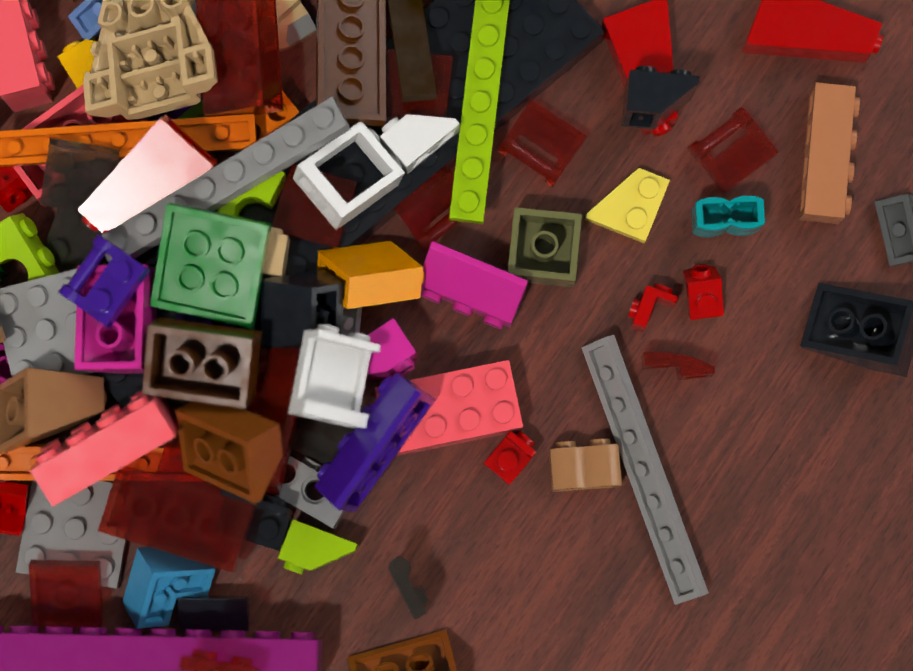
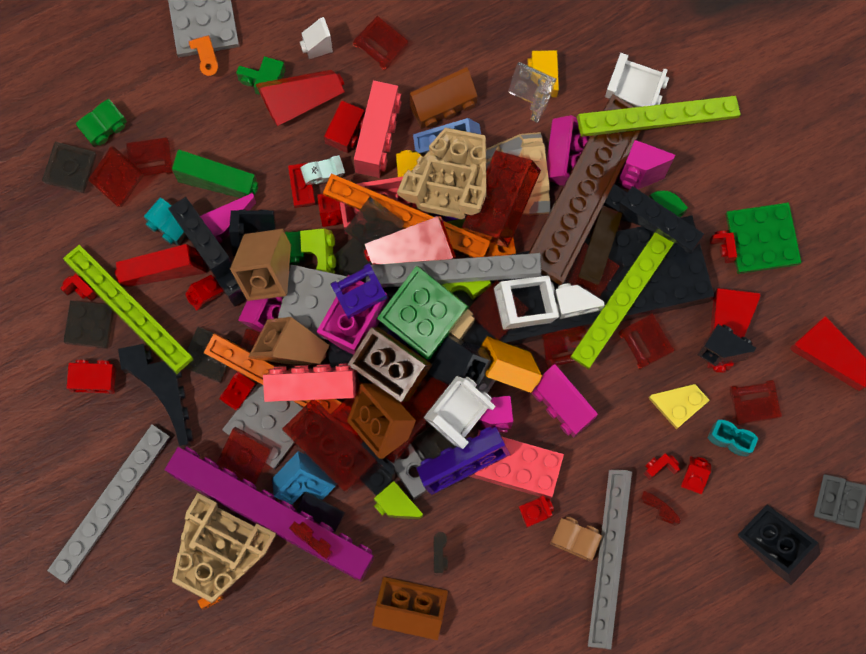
camera: 25 degrees right, 5 degrees down
(545, 246) = (617, 400): olive brick -> none
(827, 153) = (810, 431): nougat brick -> none

